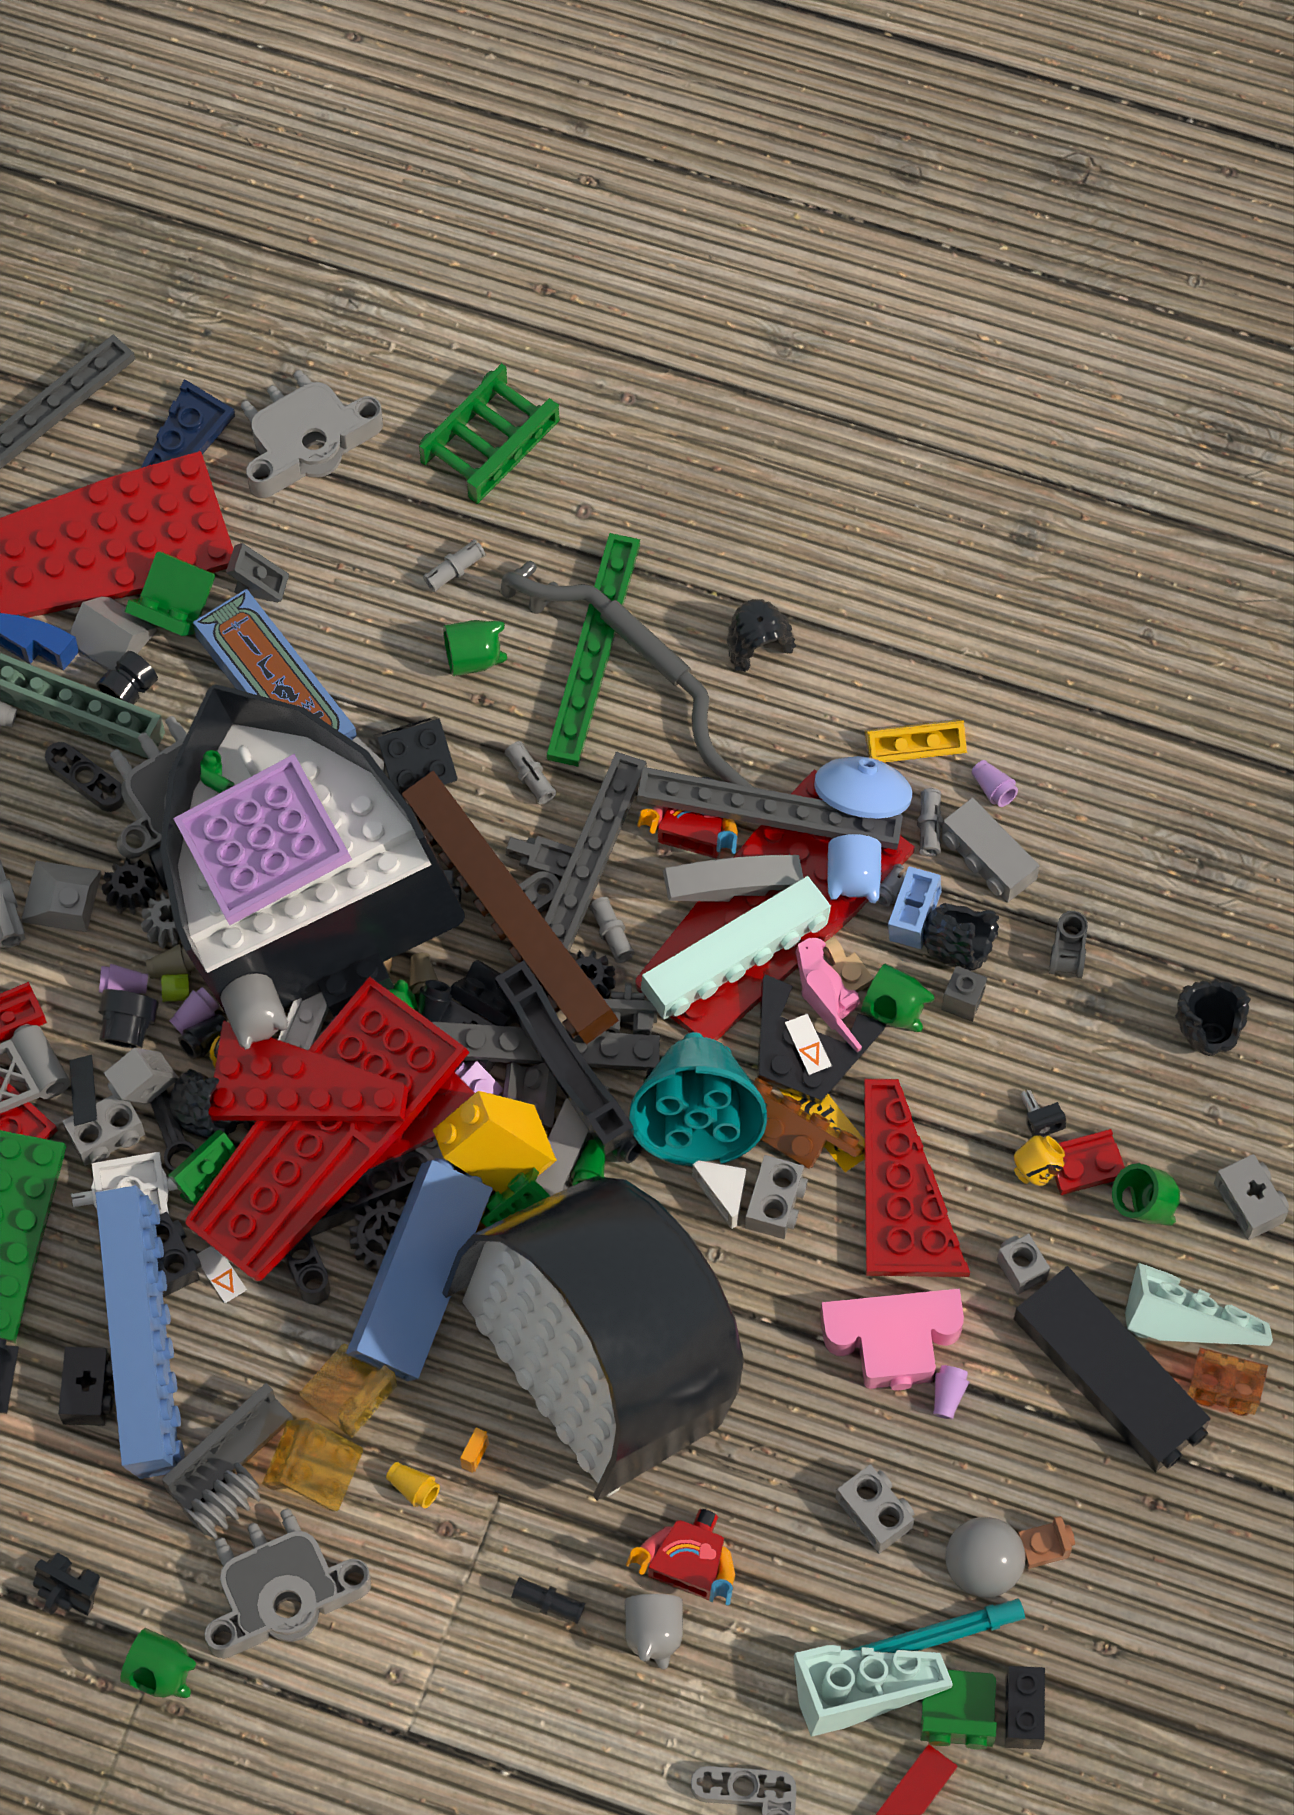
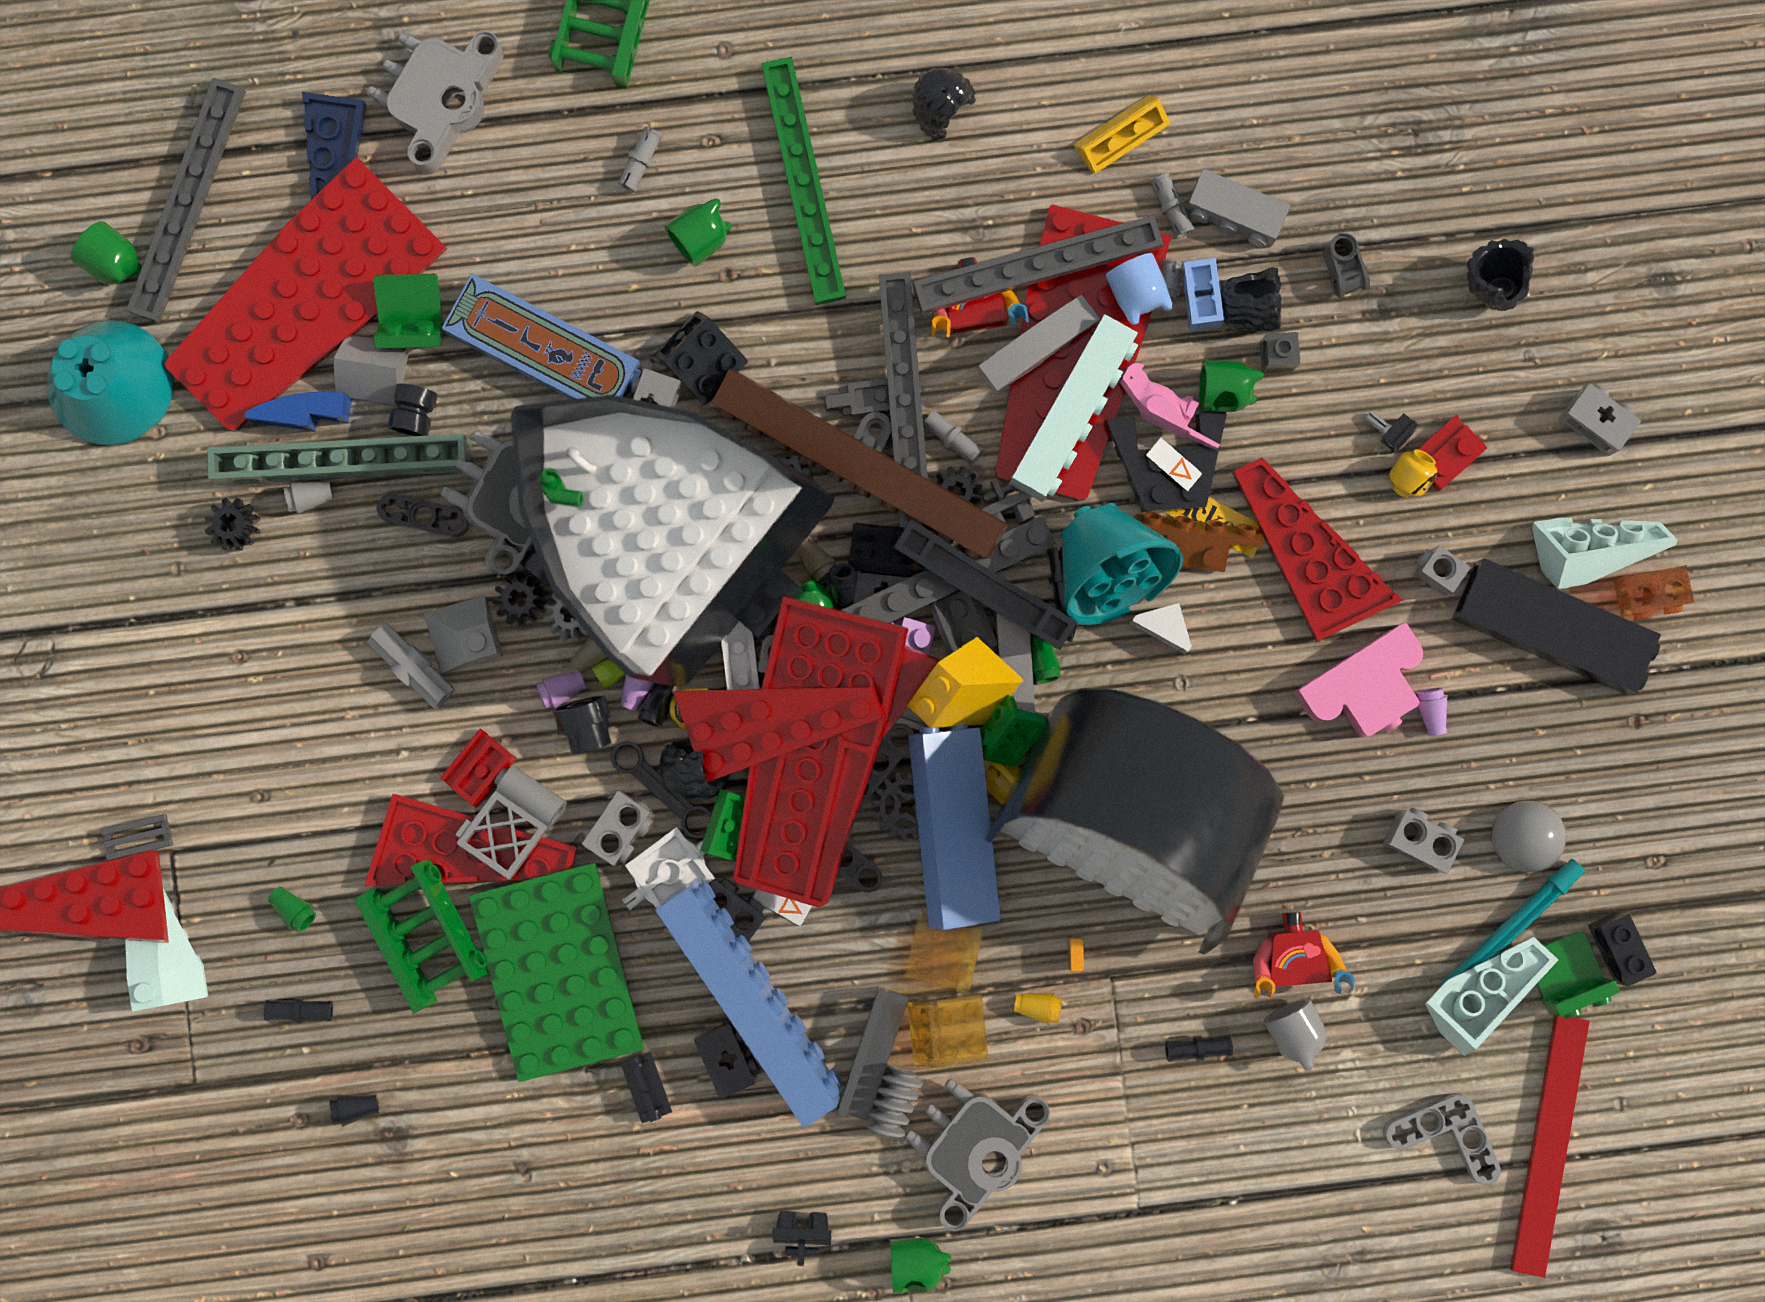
camera: 30 degrees left, 20 degrees up
(83, 1090) = (582, 805): black sticker -> none
(140, 1076) = (630, 777): light grey brick -> none
(253, 1009) = (701, 678): light grey piece -> none
(256, 574) = (471, 253): dark grey slope -> none
(262, 839) = (639, 537): lavender plate -> none
(530, 772) = (808, 325): light grey pin -> none
(641, 640) = (848, 157): dark grey piece -> none
(770, 1196) = (1202, 613): light grey brick -> none
(850, 969) = (1170, 375): tan plate -> none
(863, 787) = (1105, 204): light blue dish -> none
(996, 785) = (1211, 143): lavender cone -> none
(1047, 1543) = (1572, 798): nougat bracket -> none
(1152, 1193) = (1521, 460): green piece -> none

